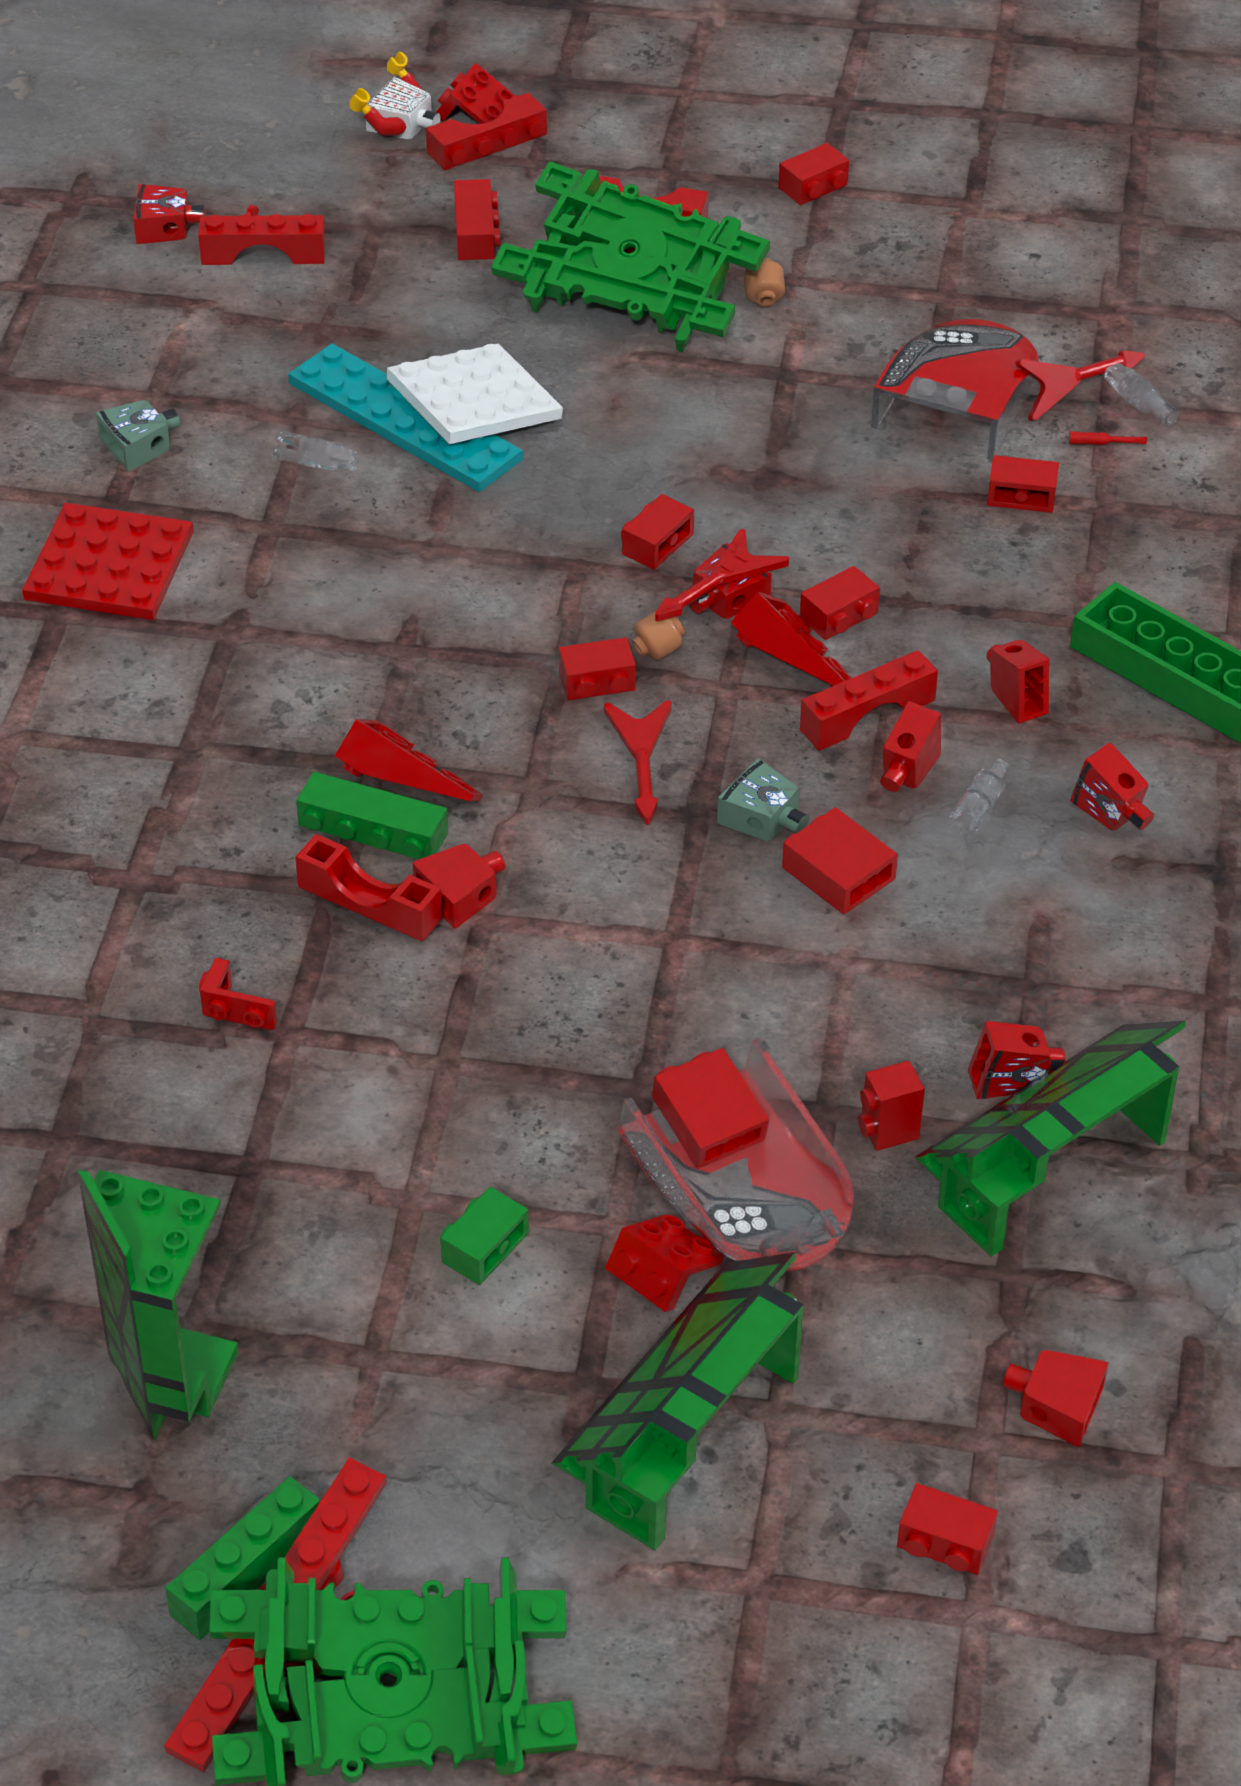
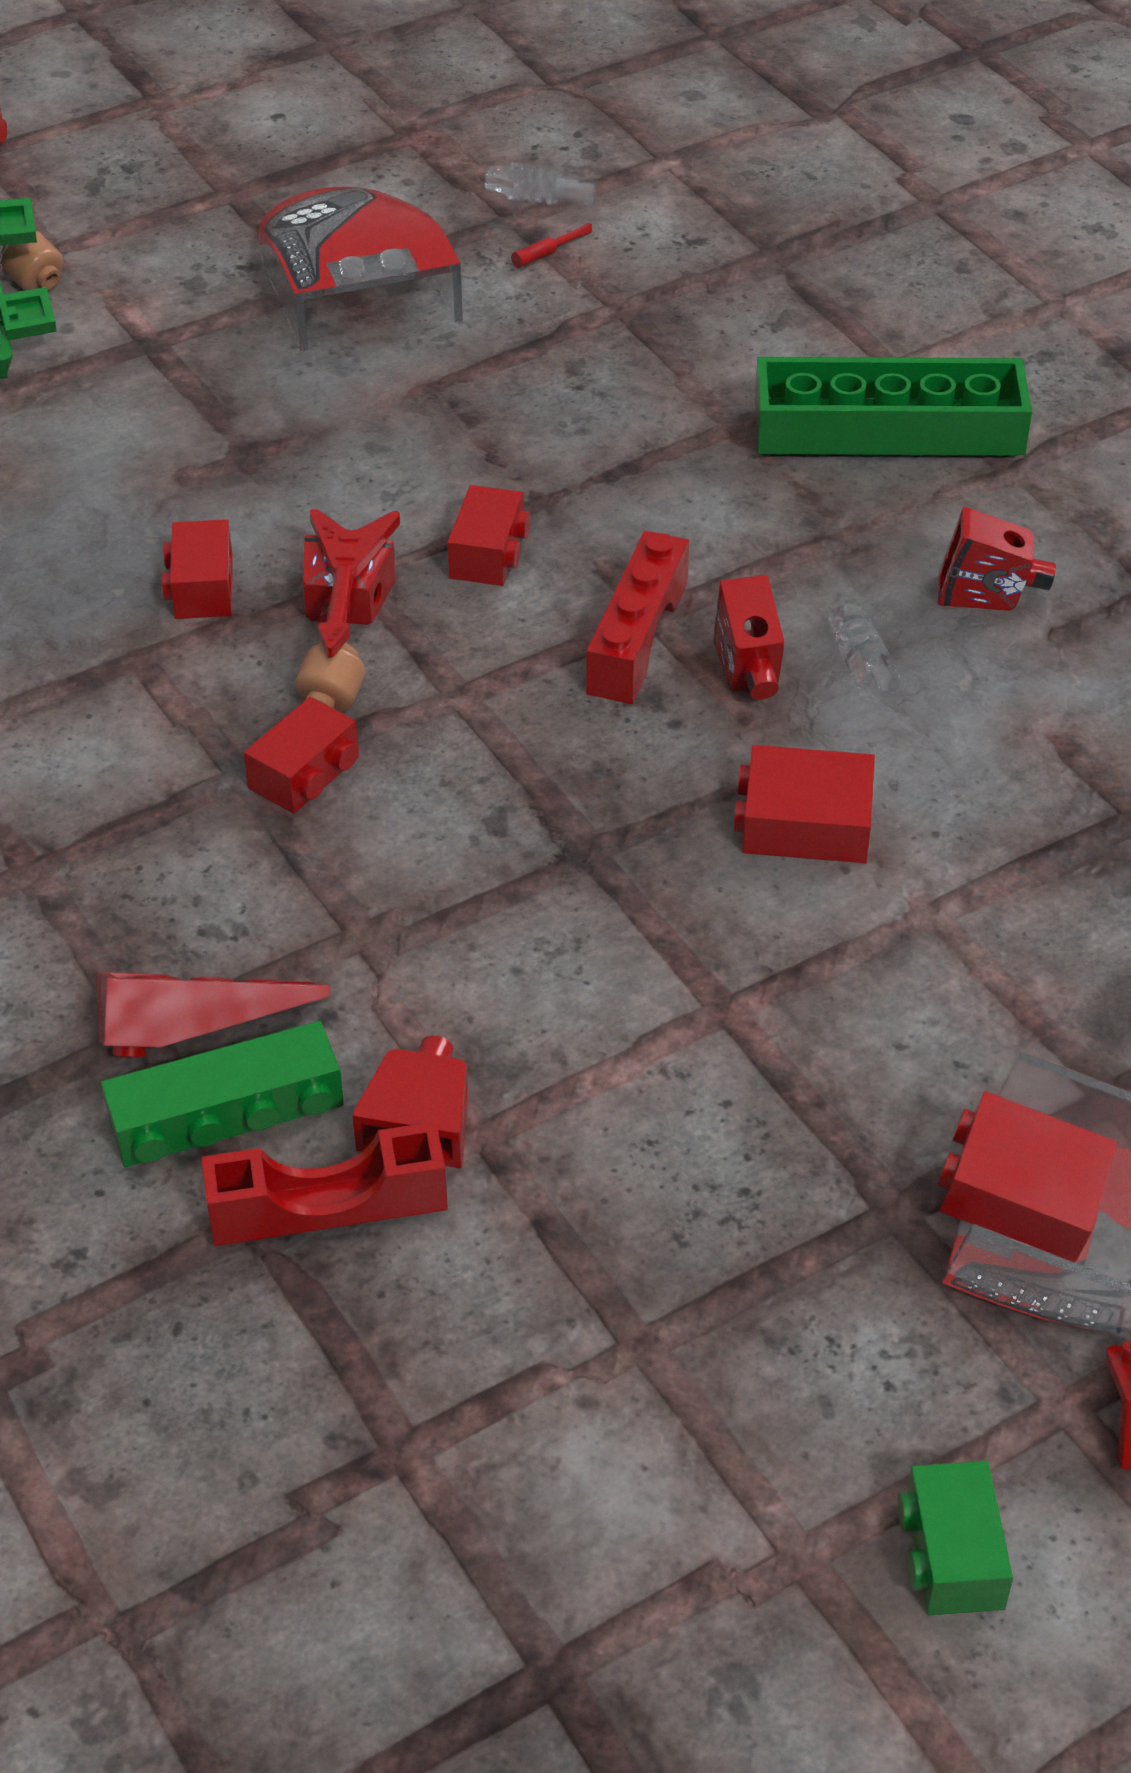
camera: 40 degrees left, 0 degrees up
(227, 1005) = (300, 1469): red bracket -> none
(640, 739) = (431, 804): red piece -> none
(761, 803) = (657, 792): sand green torso -> none
(780, 631) = (468, 602): red wedge -> none
(1020, 679) = (764, 504): red torso -> none
(1023, 483) = (531, 322): red brick -> none
(1059, 379) = (454, 204): red piece -> none

